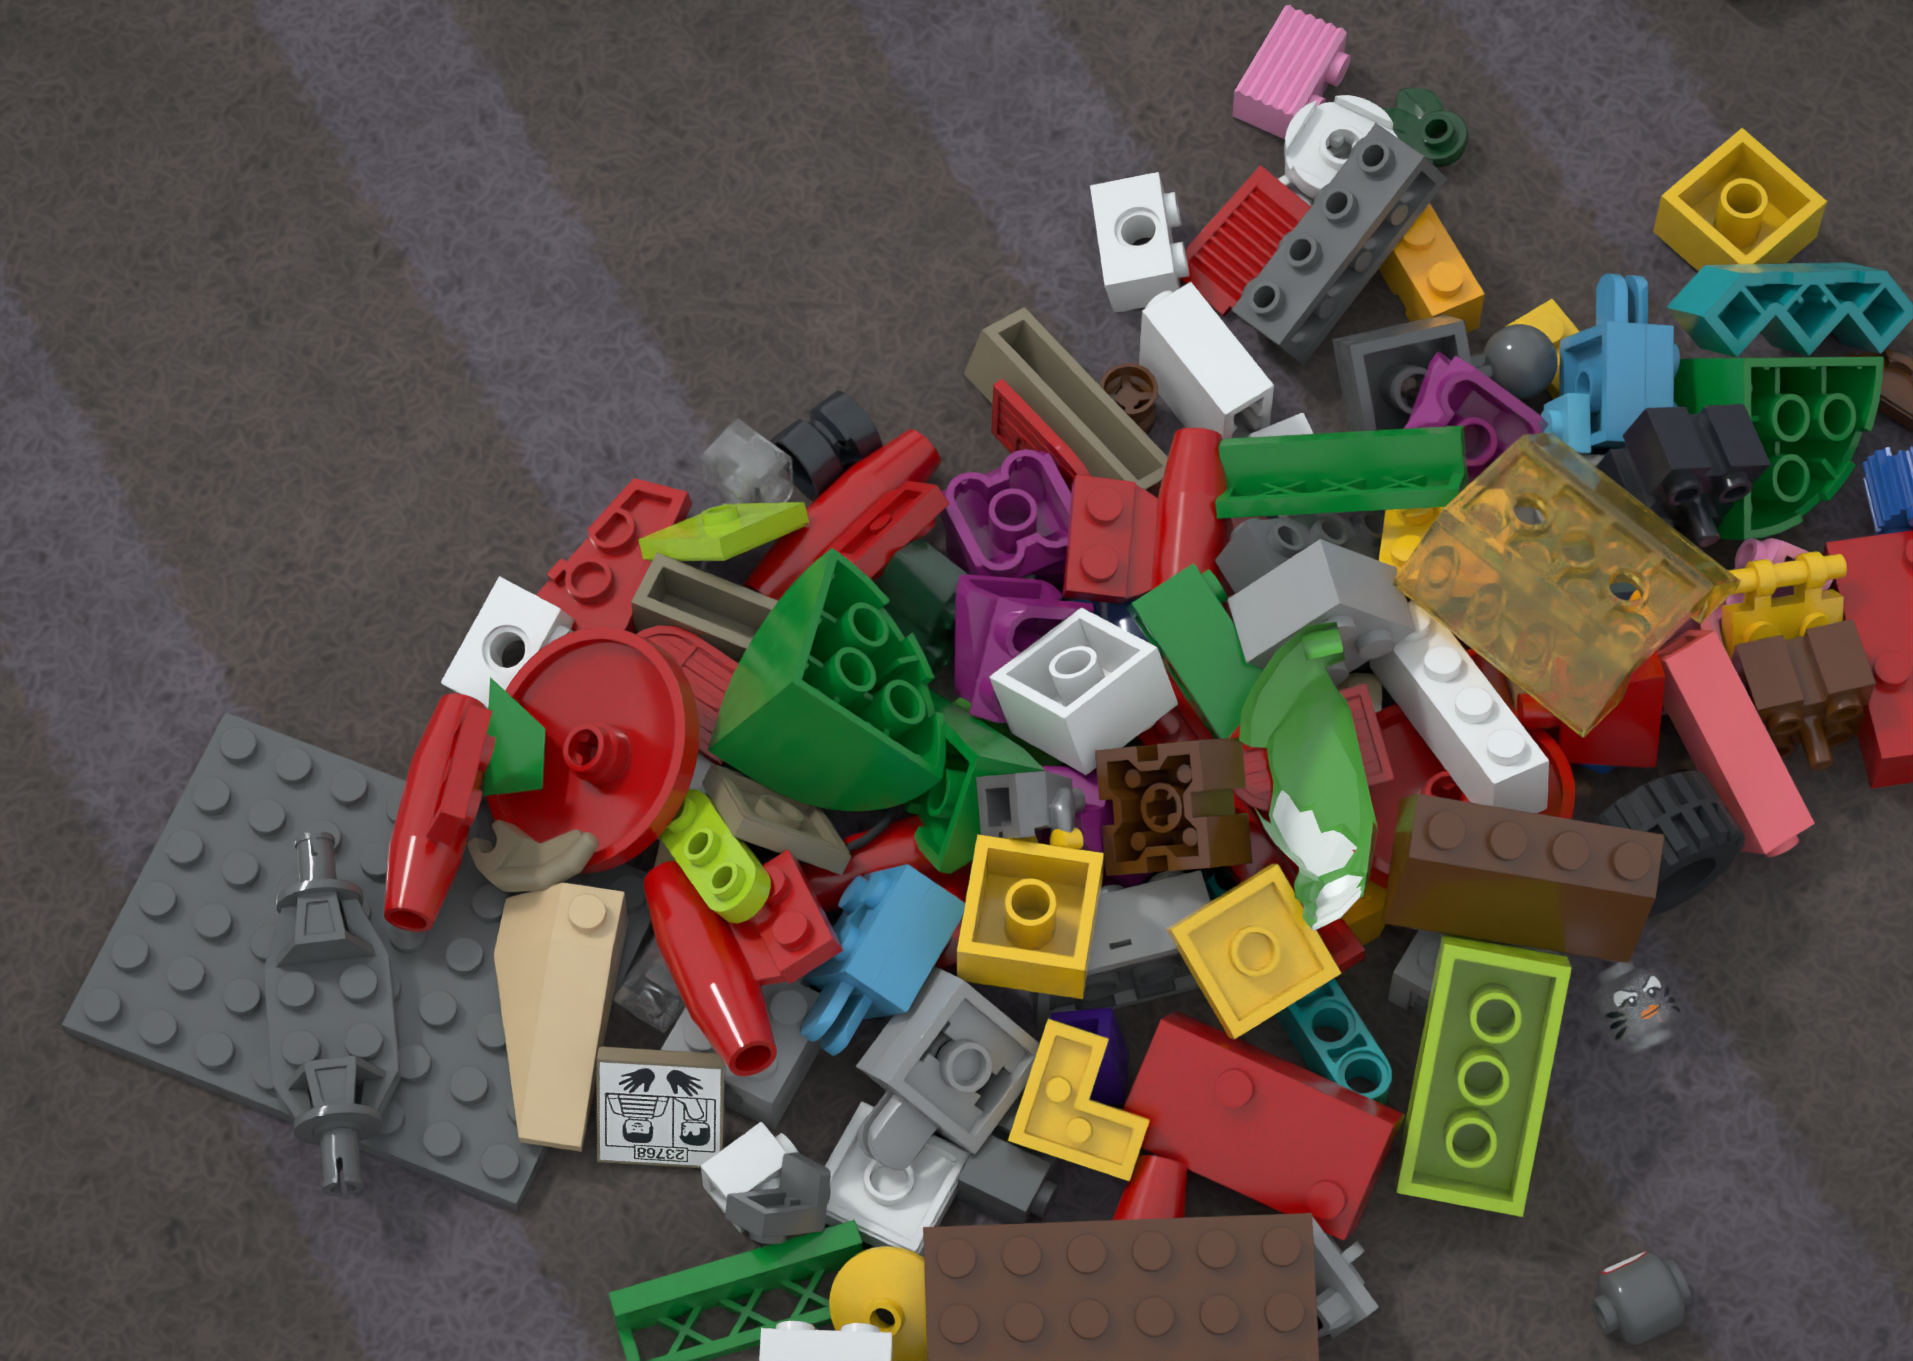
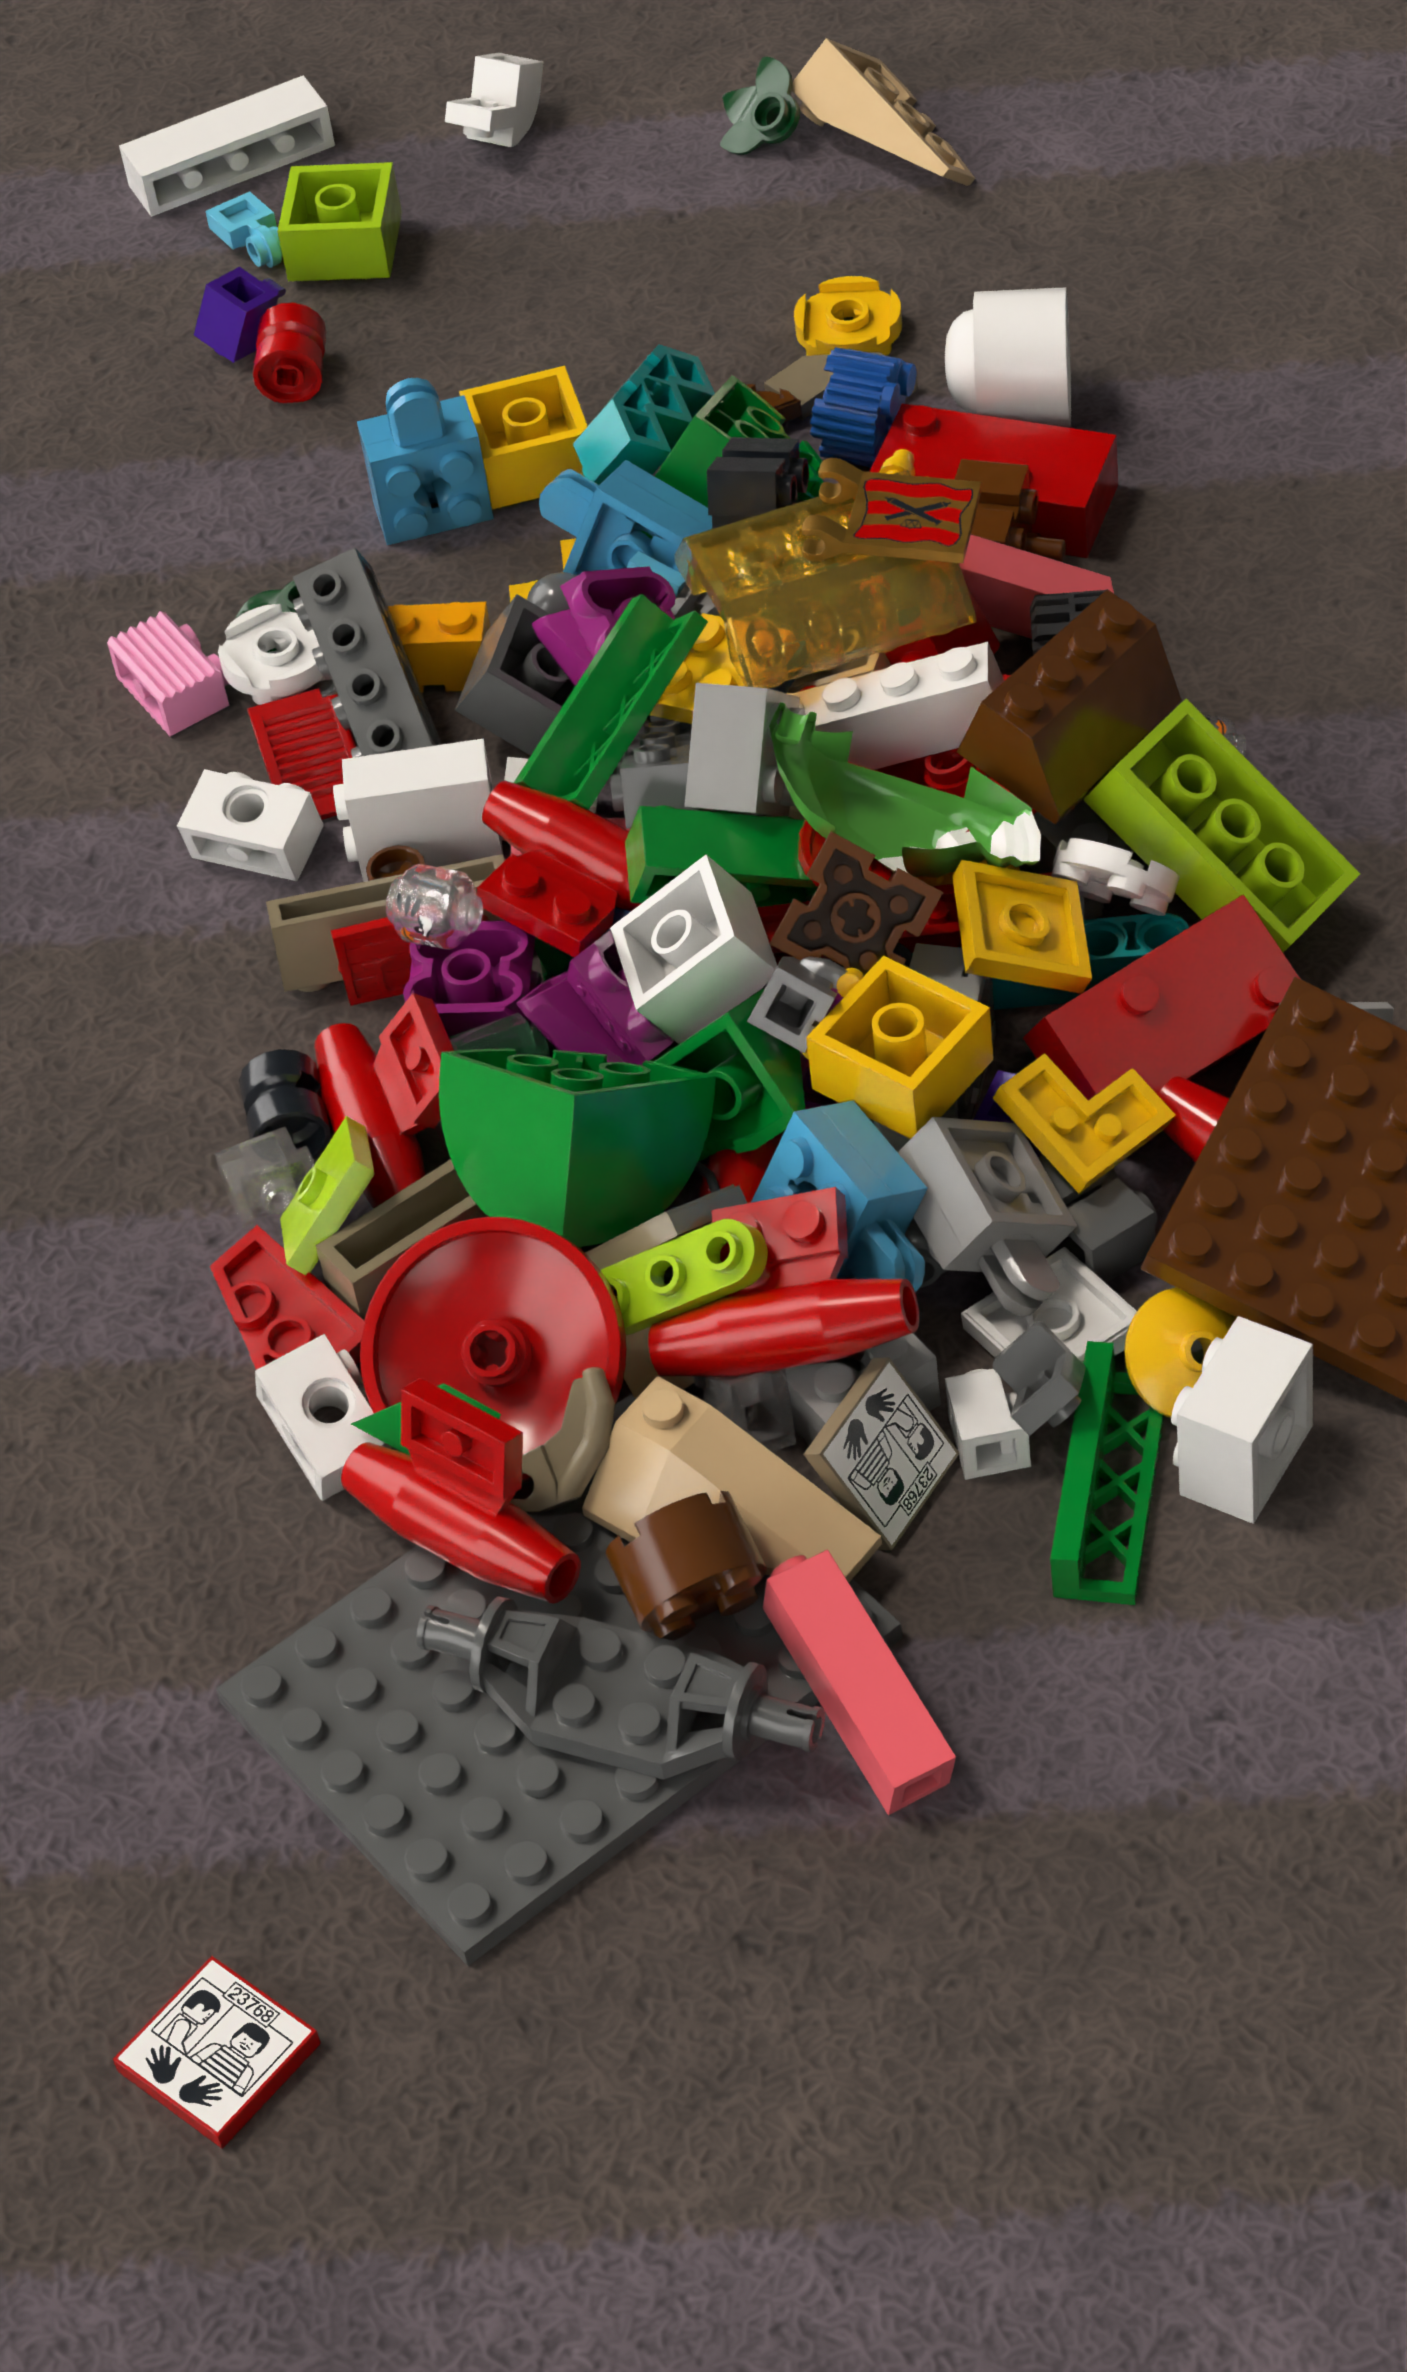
camera: 55 degrees left, 15 degrees down
(422, 1195) = (857, 1680): none -> coral brick
(449, 1010) = (688, 1565): none -> reddish brown brick
(1044, 449) = (434, 906): none -> clear head
(1375, 1002) = (1110, 870): none -> white plate
(1631, 615) = (893, 515): none -> pearl gold flag
(1634, 137) = (421, 457): none -> dark azure brick

